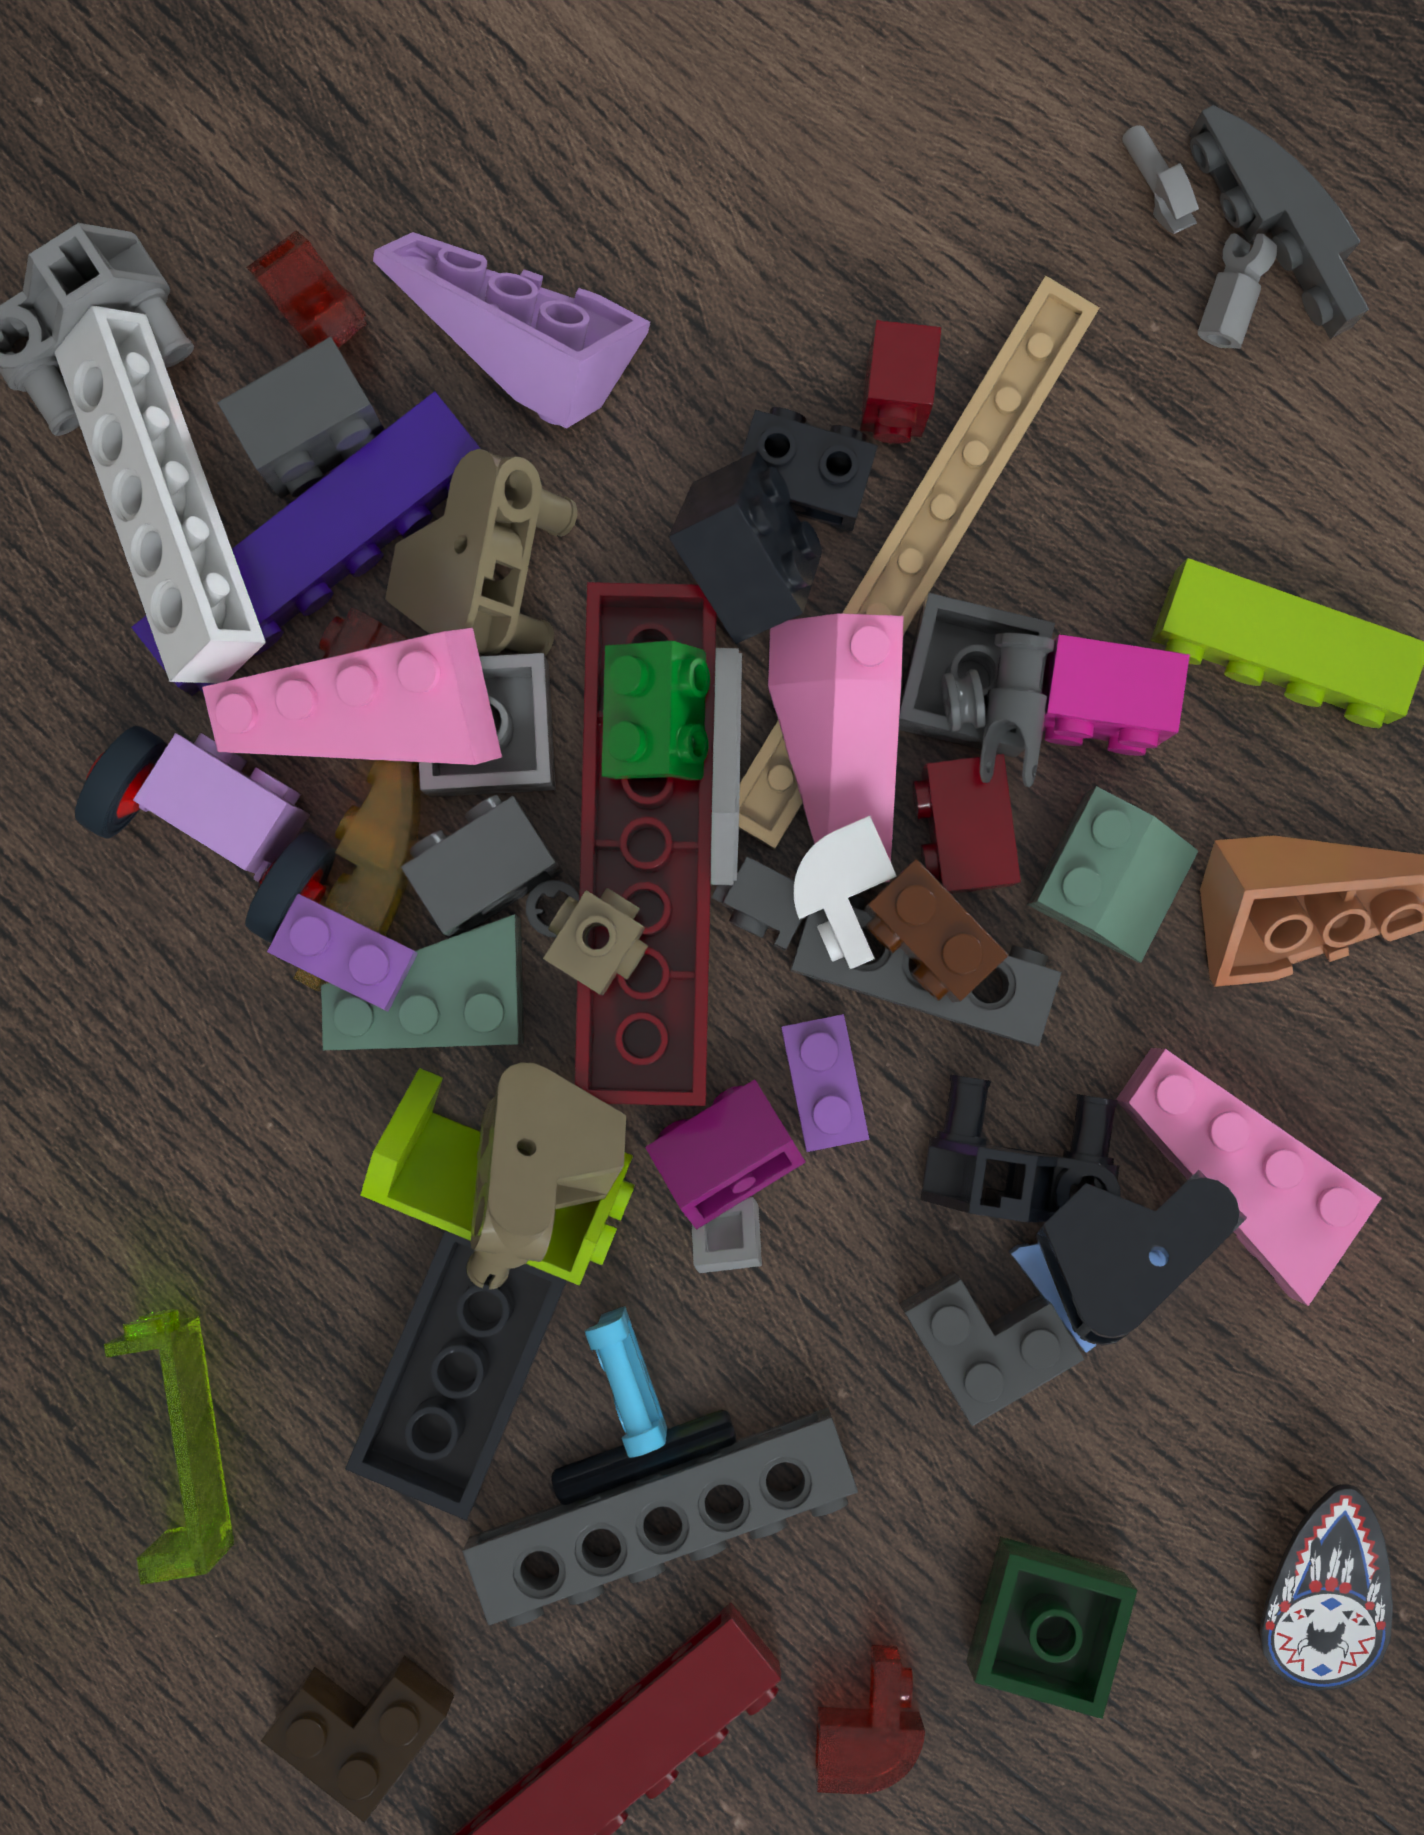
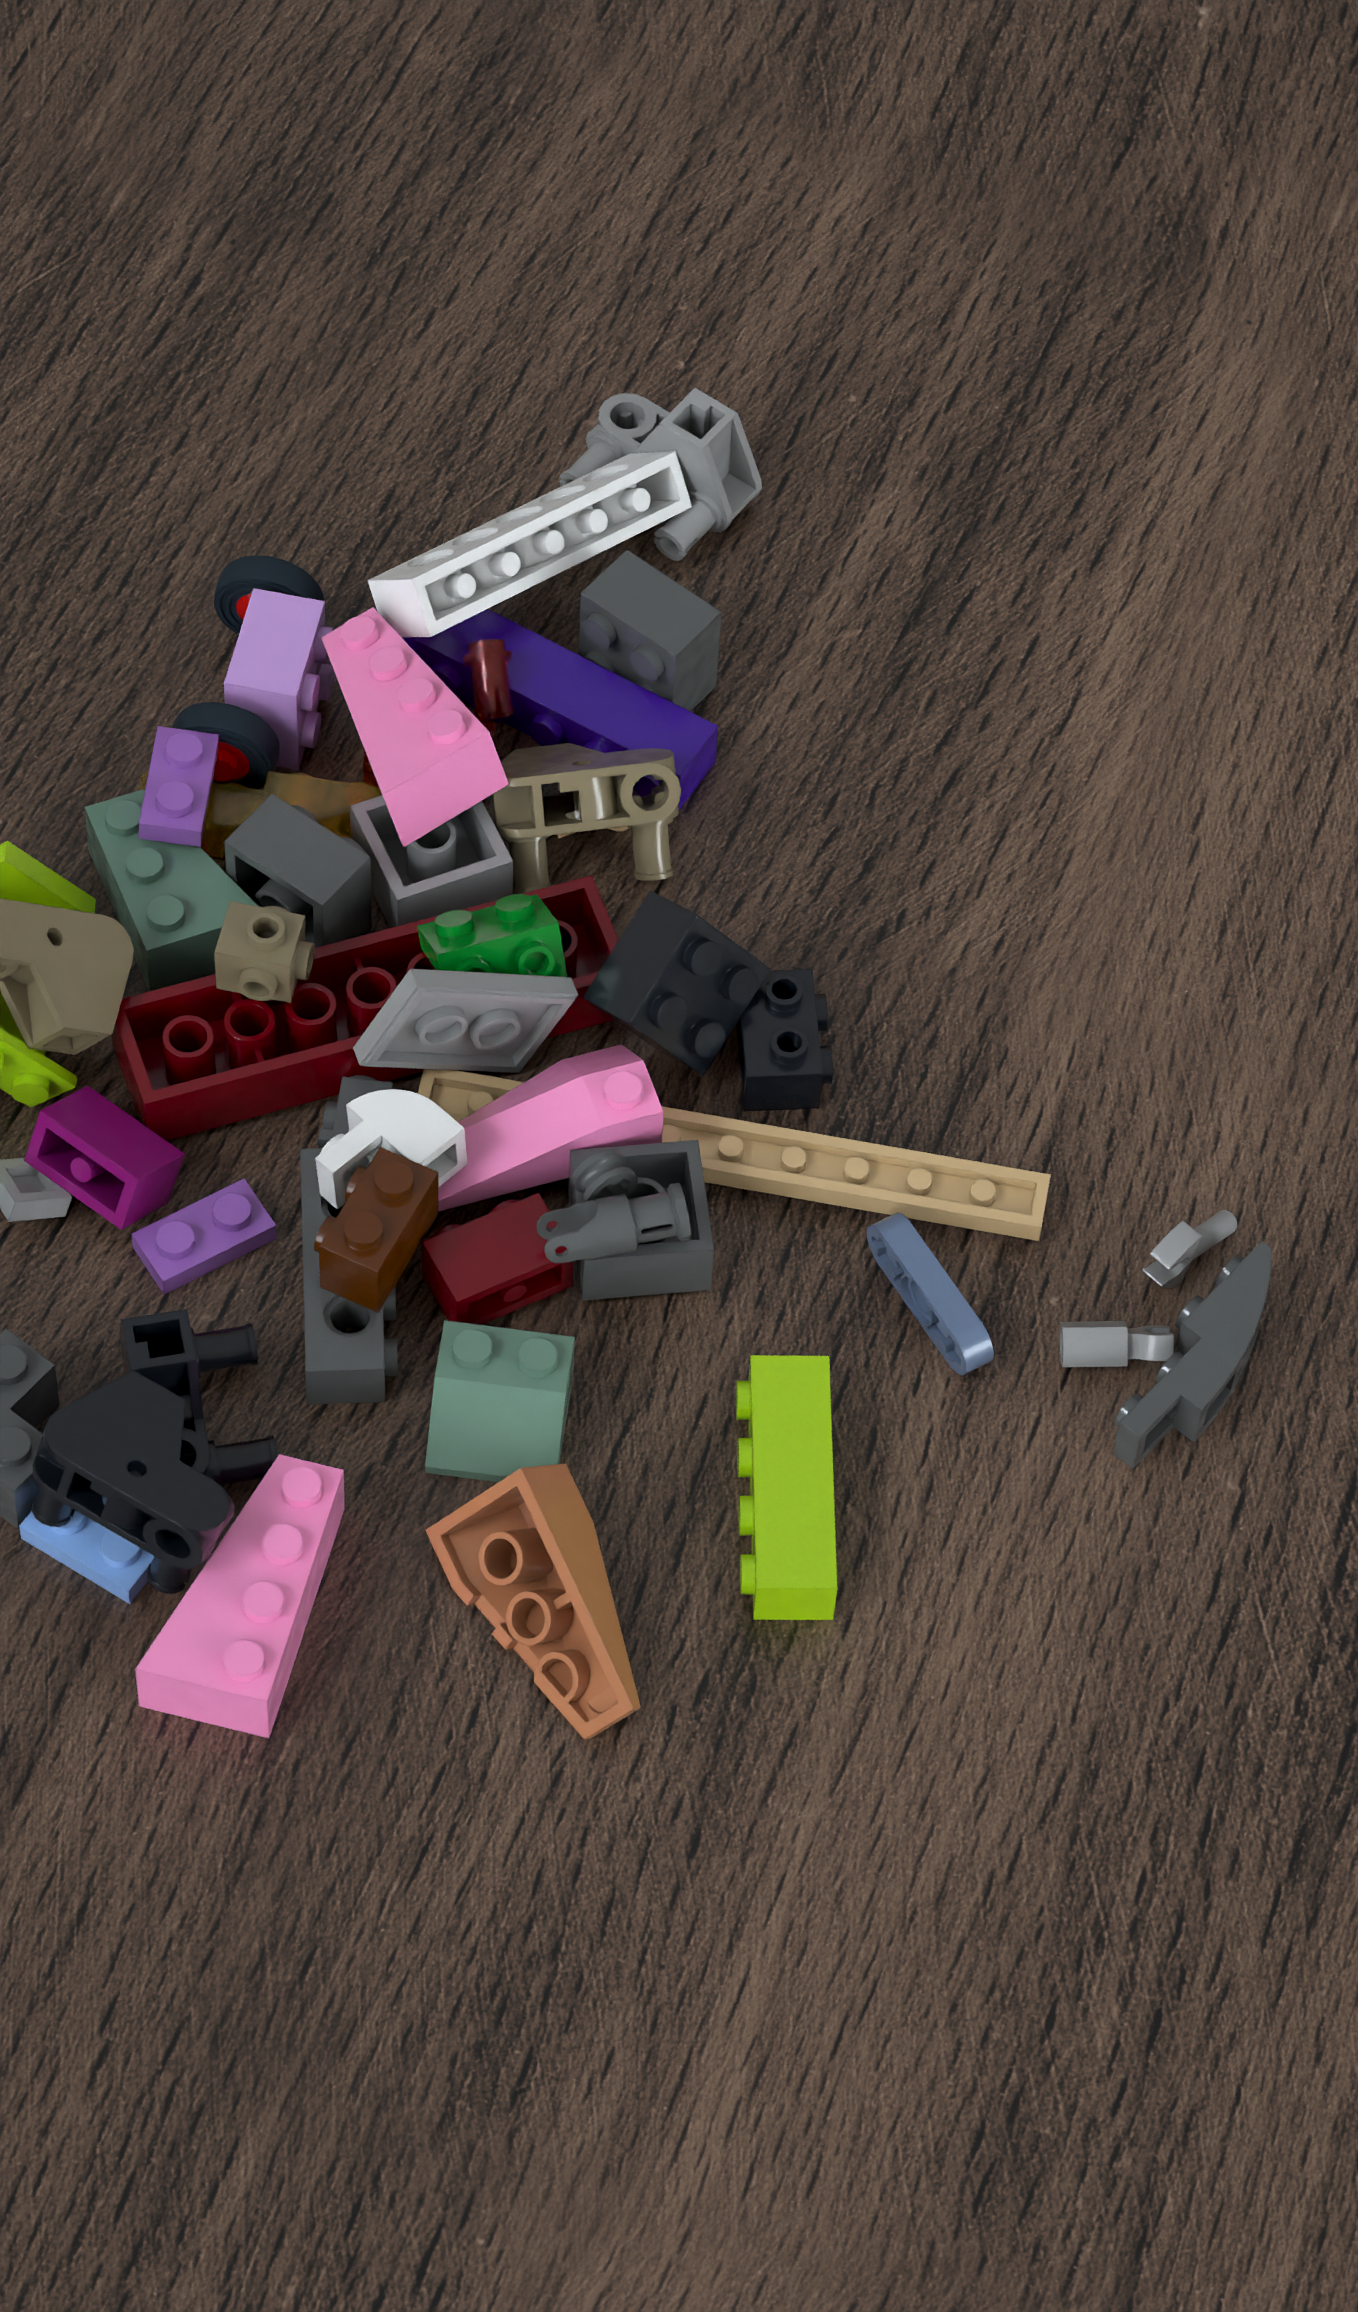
camera: 65 degrees right, 30 degrees down
(305, 595) = (490, 678): none -> clear red pin
(307, 292) = (765, 621): clear red brick -> none
(534, 342) = (807, 790): lavender wedge -> none
(900, 380) = (889, 1073): dark red brick -> none
(1112, 694) = (667, 1327): dark pink brick -> none
(1127, 437) = (930, 1293): none -> sand blue beam

